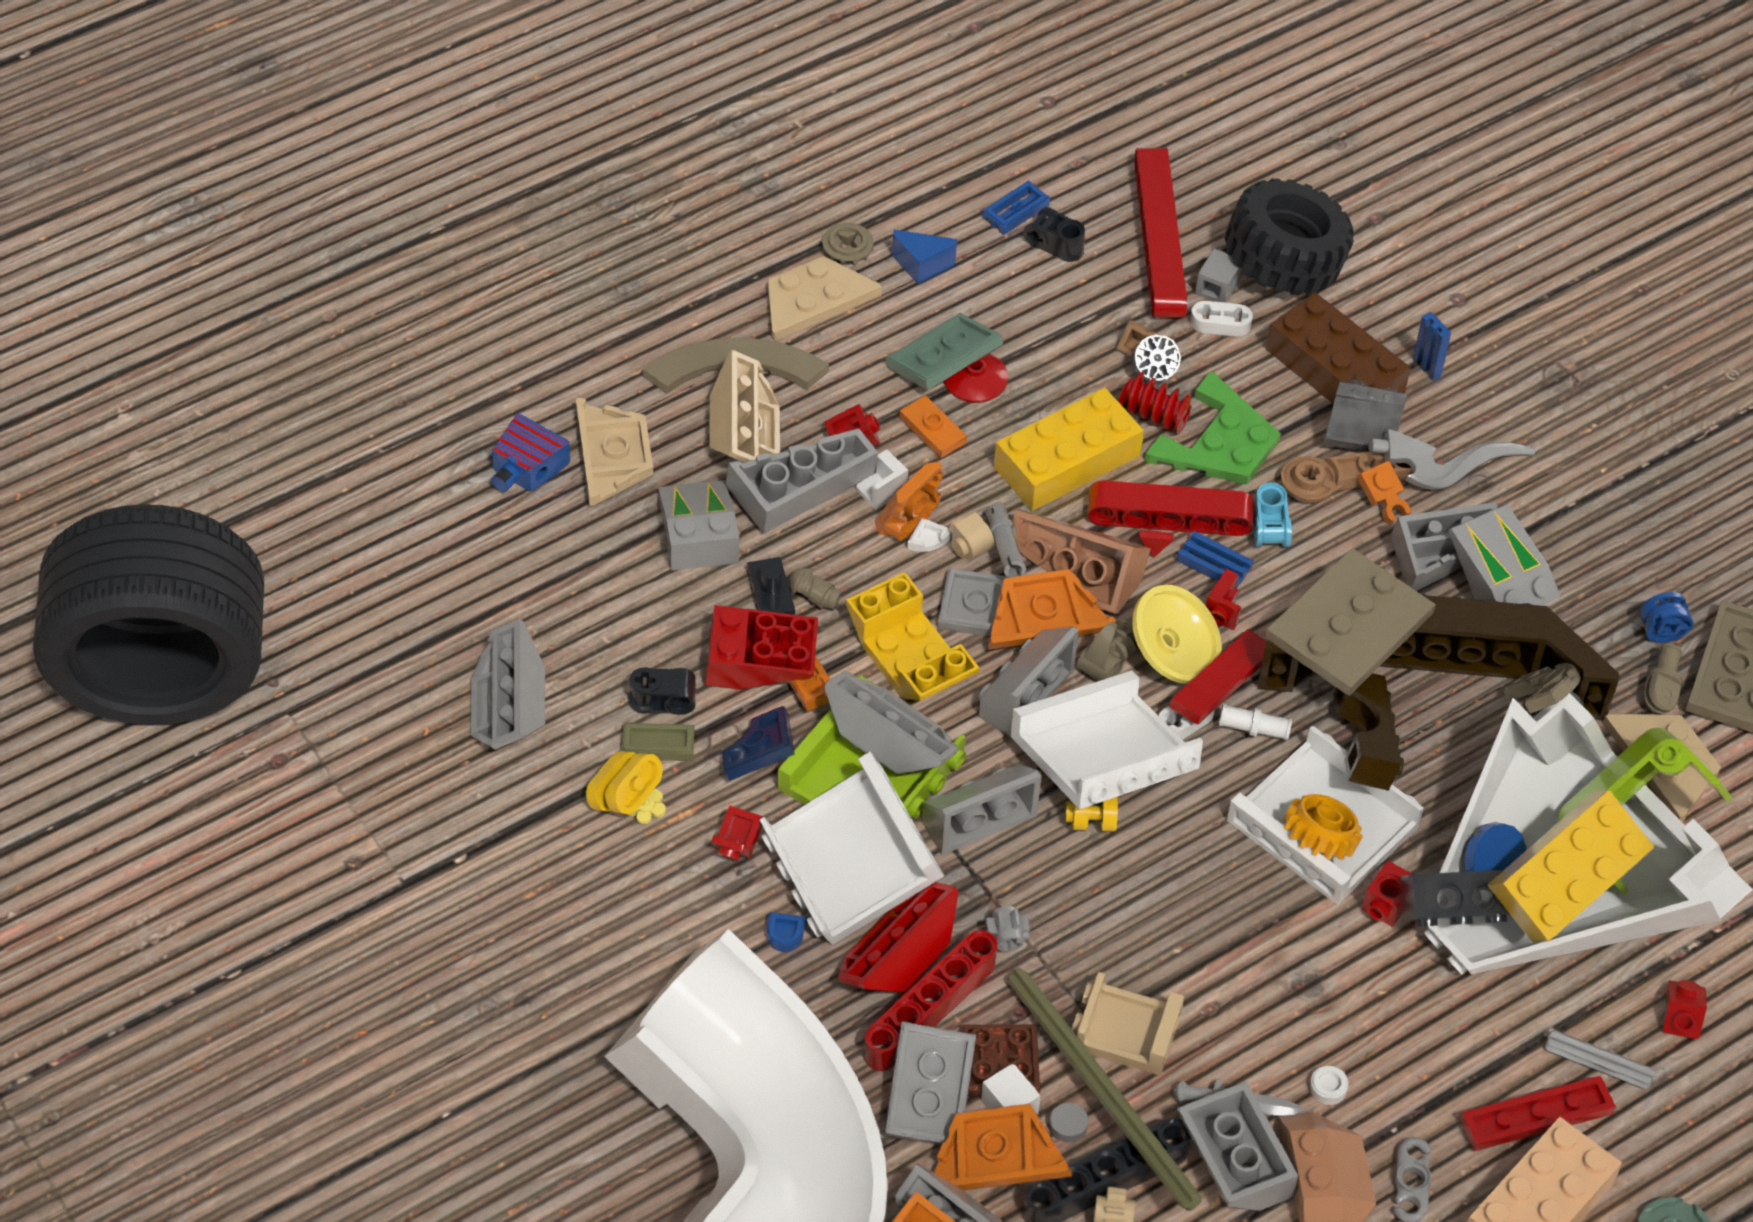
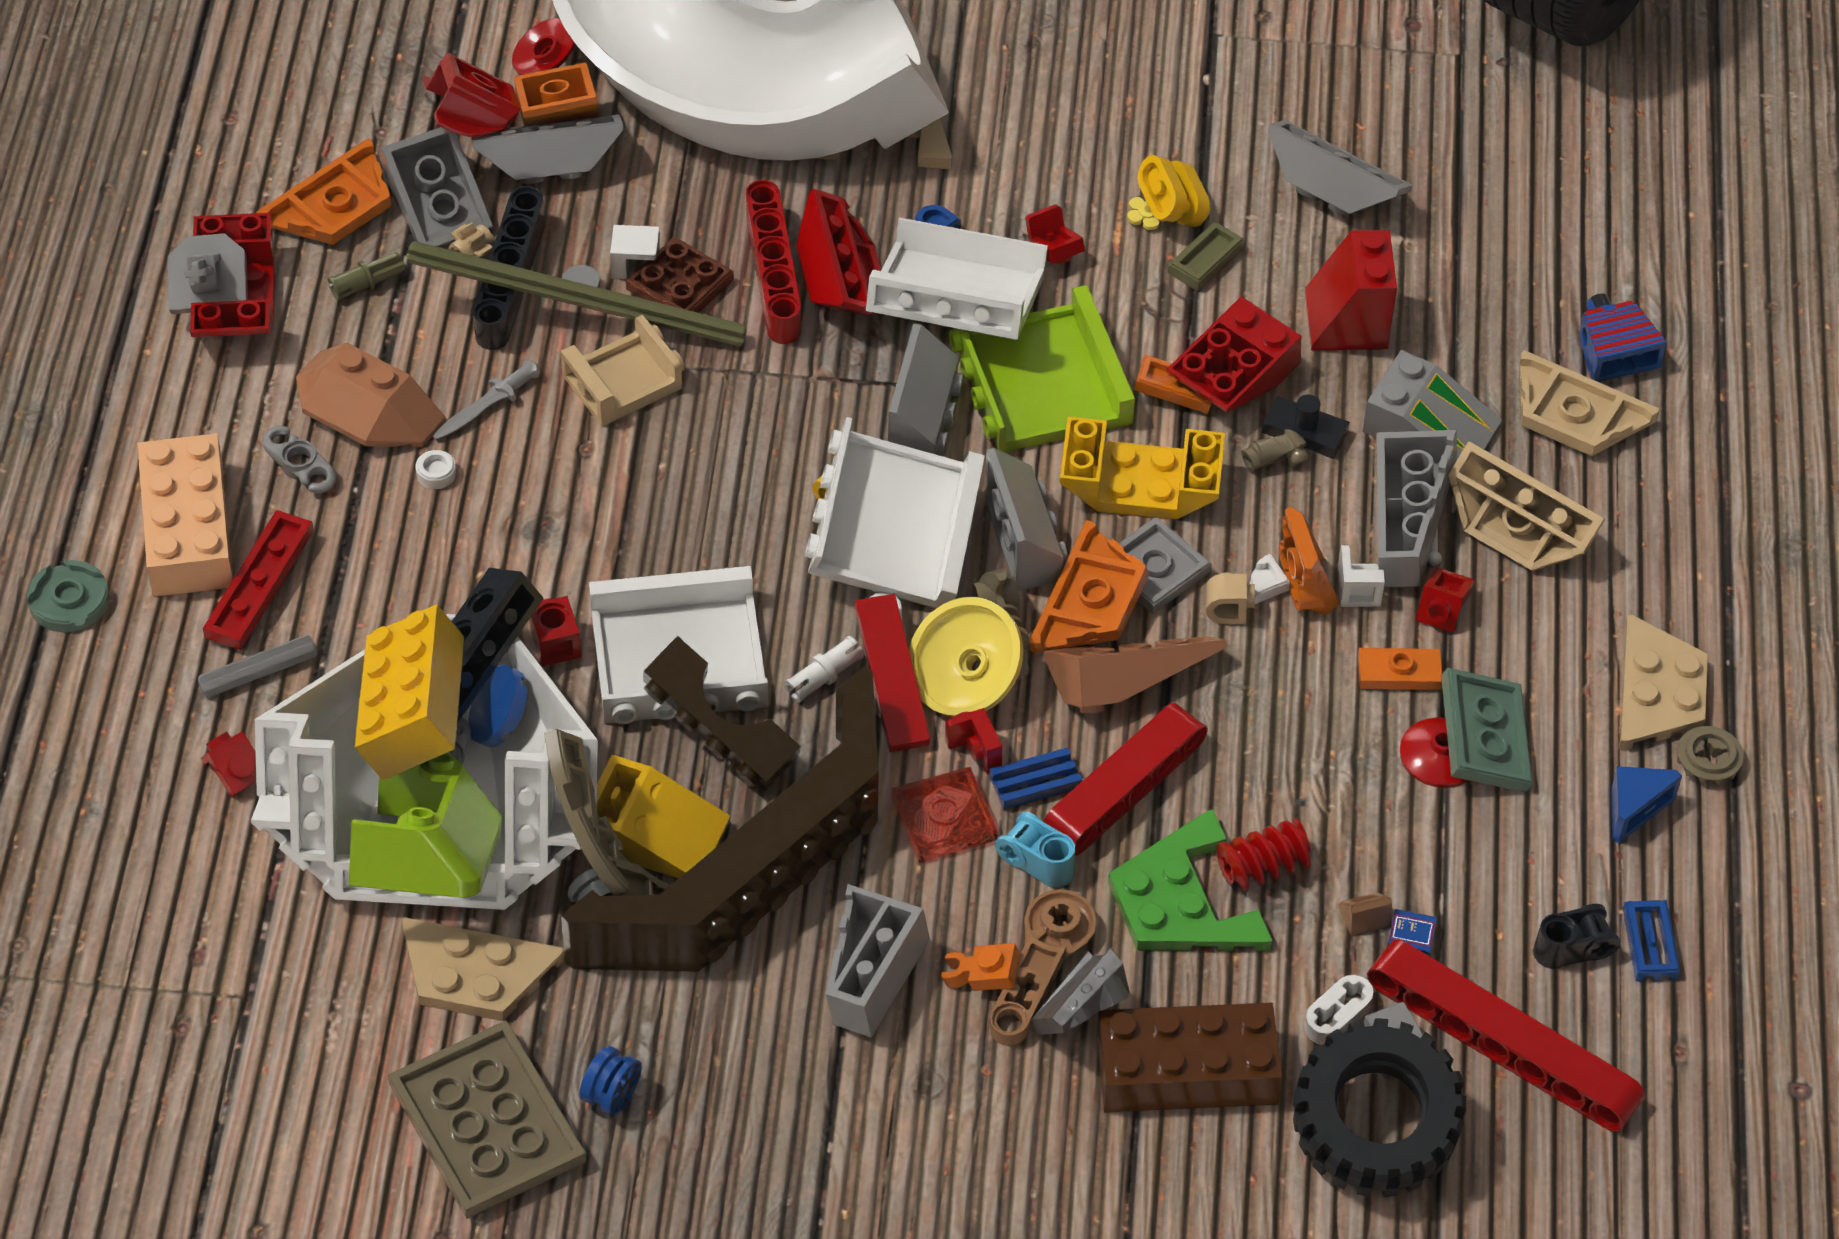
camera: 130 degrees right, 0 degrees up
(637, 605) = (1354, 294): none -> red slope
(665, 691) = (1253, 274): black piece -> none
(697, 358) = (1622, 578): dark tan tile -> none
(763, 744) = (1130, 304): dark blue tile -> none
(886, 725) = (1057, 378): light grey wedge -> none
(928, 1082) = (694, 203): light grey tile -> none
(999, 1149) = (589, 198): orange wing -> none
(1004, 536) = (1198, 611): light grey pin -> none
(1008, 928) = (787, 347): light grey gear -> none
(1068, 449) = (1269, 741): yellow brick -> none
(1131, 309) = (1413, 929): none -> blue tile
(1155, 540) = (1102, 741): red slope -> none
(1156, 358) = (1322, 891): wheel -> none
(1240, 1148) = (438, 343): light grey slope -> none
(1281, 585) = (944, 814): none -> clear red tile
(1323, 825) = (658, 593): light orange gear -> none
(1350, 621) = (827, 744): dark tan plate -> none
(1429, 342) = (1122, 1122): blue tile -> none
(1429, 474) = (968, 1024): light grey piece -> none
(1465, 724) = (657, 818): none -> yellow slope
(1502, 560) = (787, 964): light grey slope -> none
(1664, 682) = (549, 1027): dark tan arm -> none

